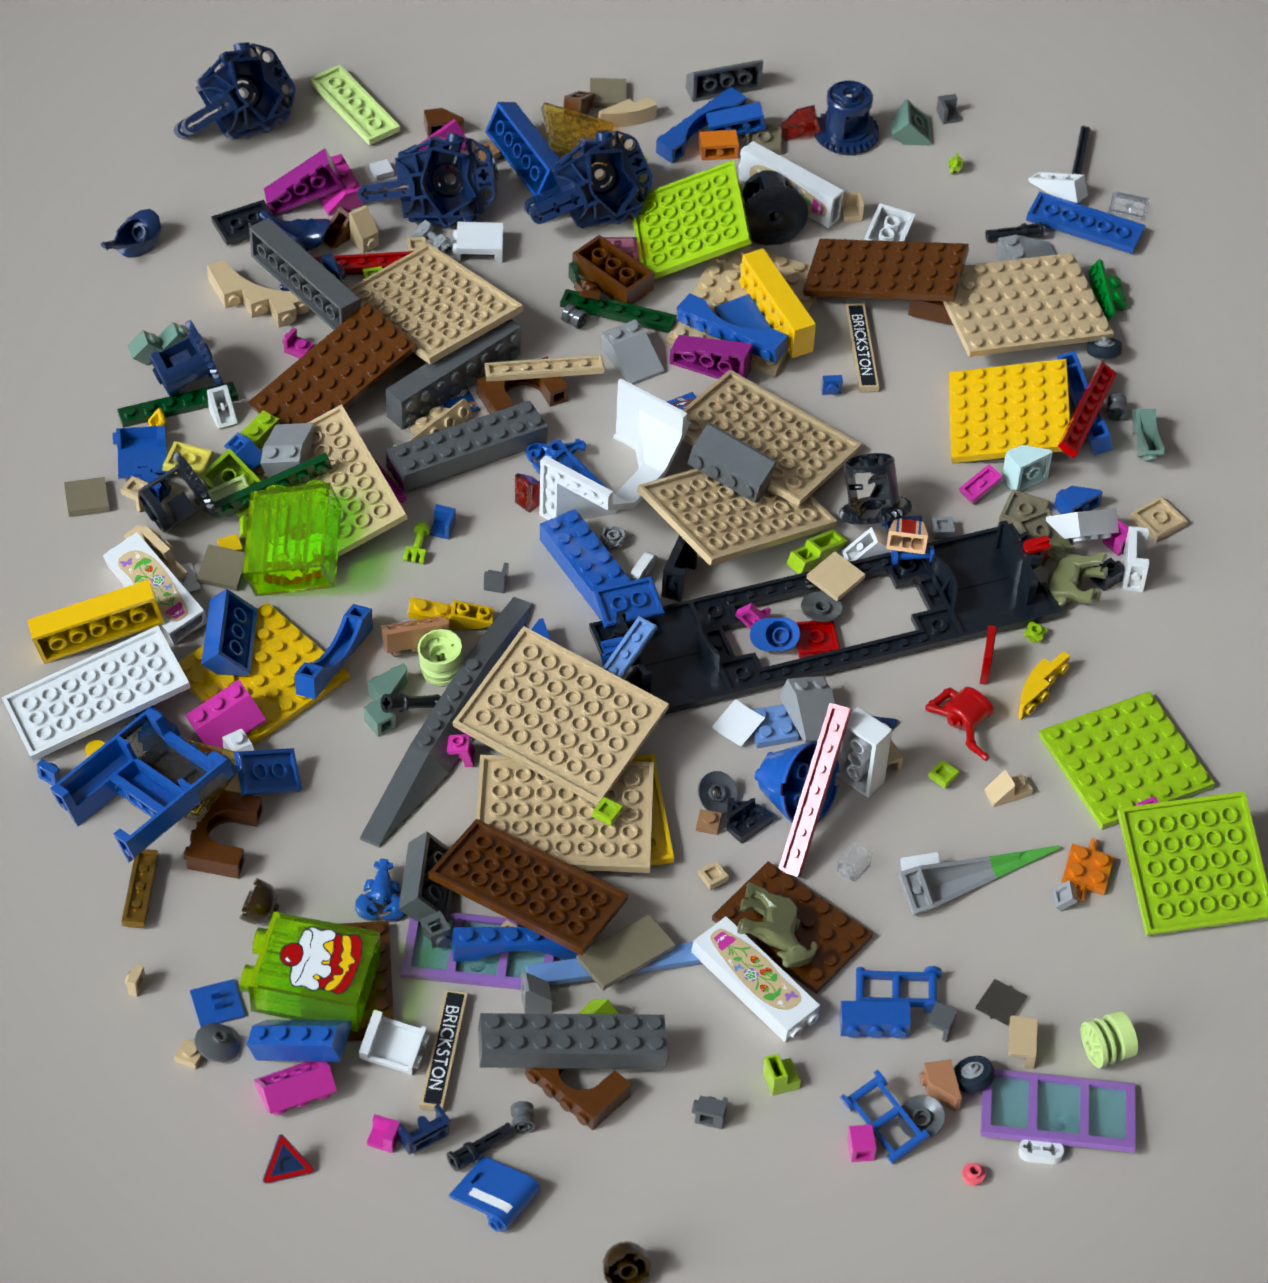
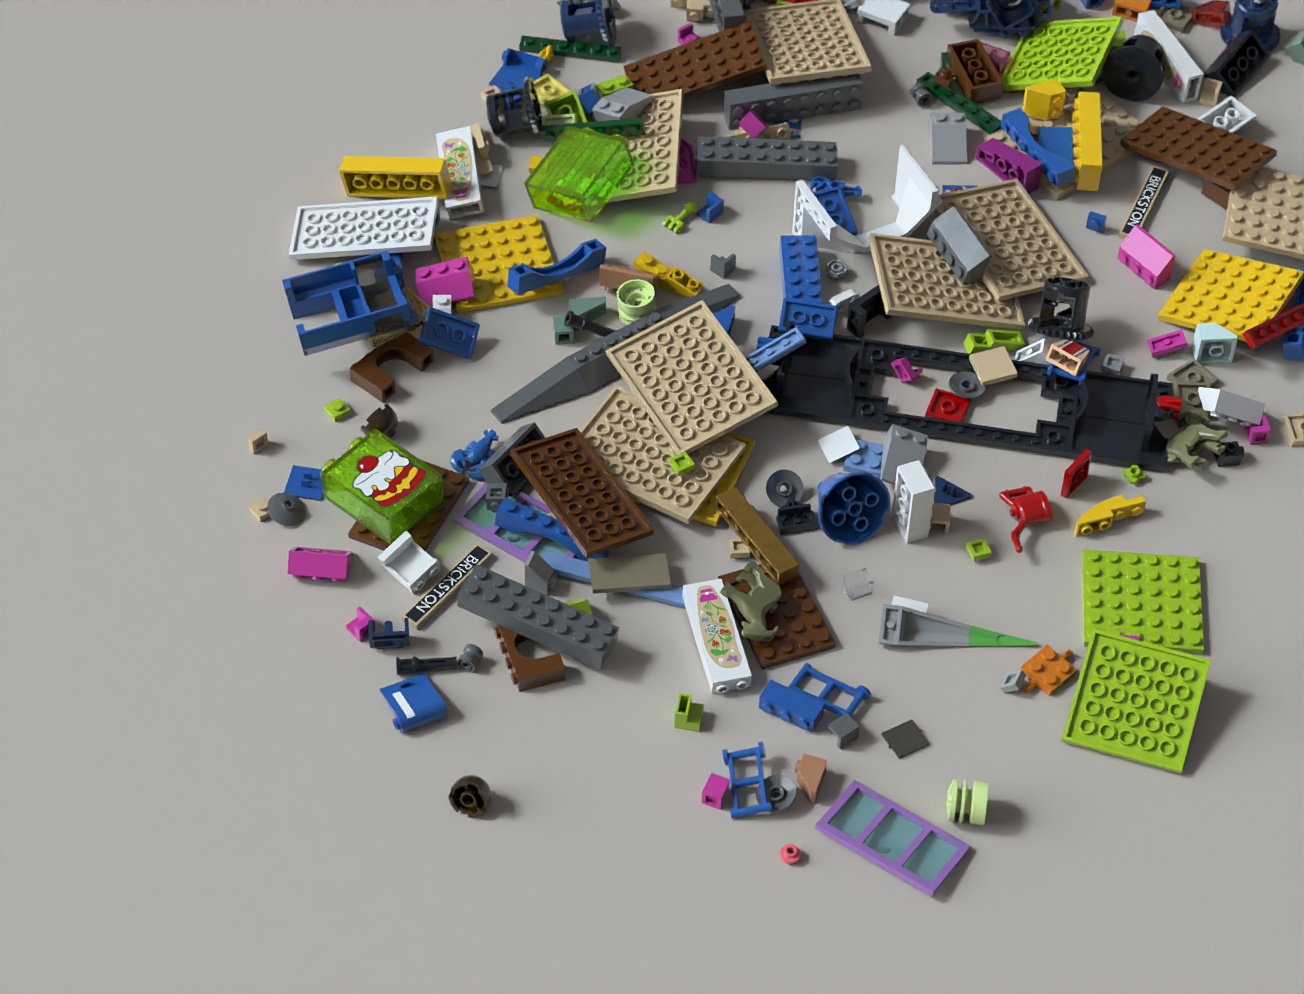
camera: 30 degrees right, 0 degrees up
(48, 772) = (294, 268): blue plate -> none
(86, 496) = (457, 90): dark tan tile -> none
(140, 889) = (305, 379): pearl gold plate -> none
(196, 907) = (337, 409): none -> lime plate
(221, 406) = (599, 61): white slope -> none
(221, 567) = (515, 176): dark tan tile -> none
(229, 635) = (489, 225): blue slope -> none
(285, 1162) = (275, 612): piece -> none
(299, 1040) = (341, 530): blue slope -> none
(432, 414) = (752, 124): none -> dark pink panel
(463, 746) = (609, 375): dark pink bracket -> none
(495, 395) = (860, 126): reddish brown arch -> none
(527, 492) = (787, 208): clear red slope -> none
(544, 368) = (865, 122): tan tile -> none
(708, 821) = (765, 507): medium nougat plate -> none
(709, 275) = (1045, 100): none -> yellow slope
(710, 1111) = (615, 716): dark grey brick -> none
(727, 854) = (757, 535): none -> pearl gold brick
(774, 634) = (911, 389): blue piece -> none
(815, 789) = (851, 511): plate -> none
(859, 164) = (1238, 62): none -> black slope
(906, 402) = (1146, 257): none -> slope
(974, 1074) = (841, 780): black wheel -> none
(1007, 789) = (1023, 583): tan slope -> none
(1023, 1039) = (899, 772): tan panel -> none
(1040, 1152) = (856, 862): white beam -> none
(1077, 499) = (1243, 385): blue slope -> none
(1134, 565) = (1260, 440): white panel -> none

